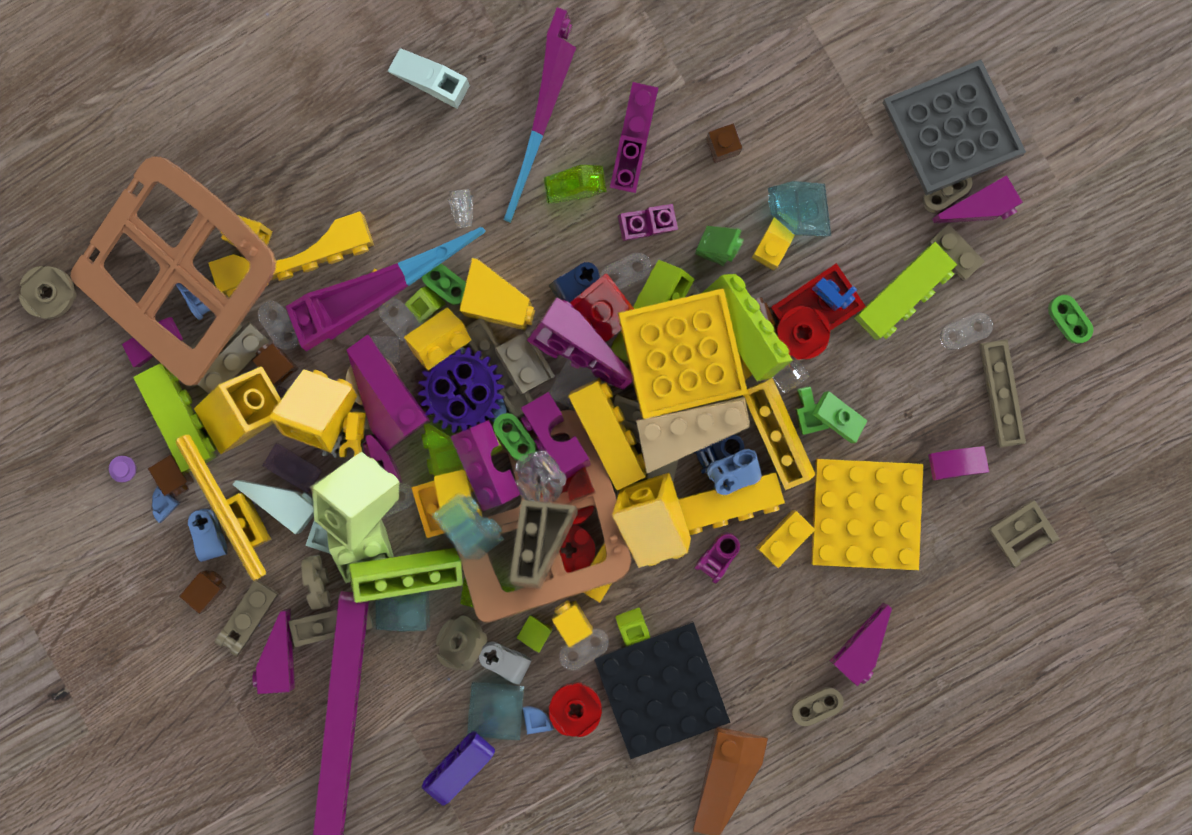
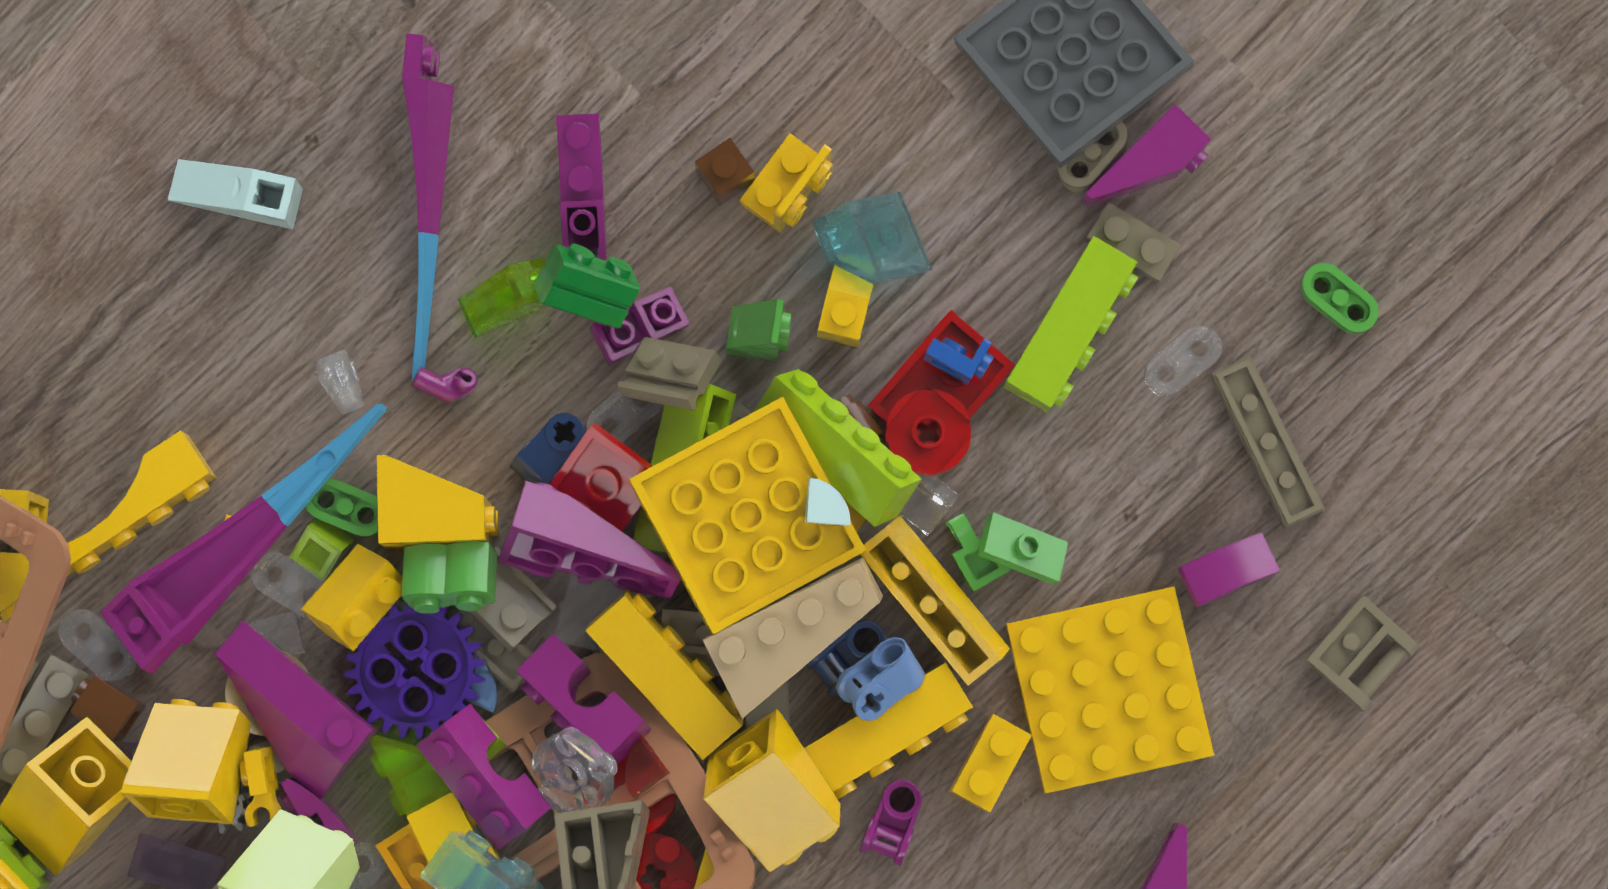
camera: 20 degrees left, 5 degrees down
(496, 341) = (449, 576): none -> bright green brick
(515, 438) = (521, 720): bright green plate -> none
(524, 228) = (447, 386): none -> magenta arm
(624, 189) = (587, 285): none -> green brick
(658, 255) = (669, 373): none -> dark tan plate
(731, 360) = (825, 505): none -> light aqua tile
(759, 159) = (786, 181): none -> yellow bracket

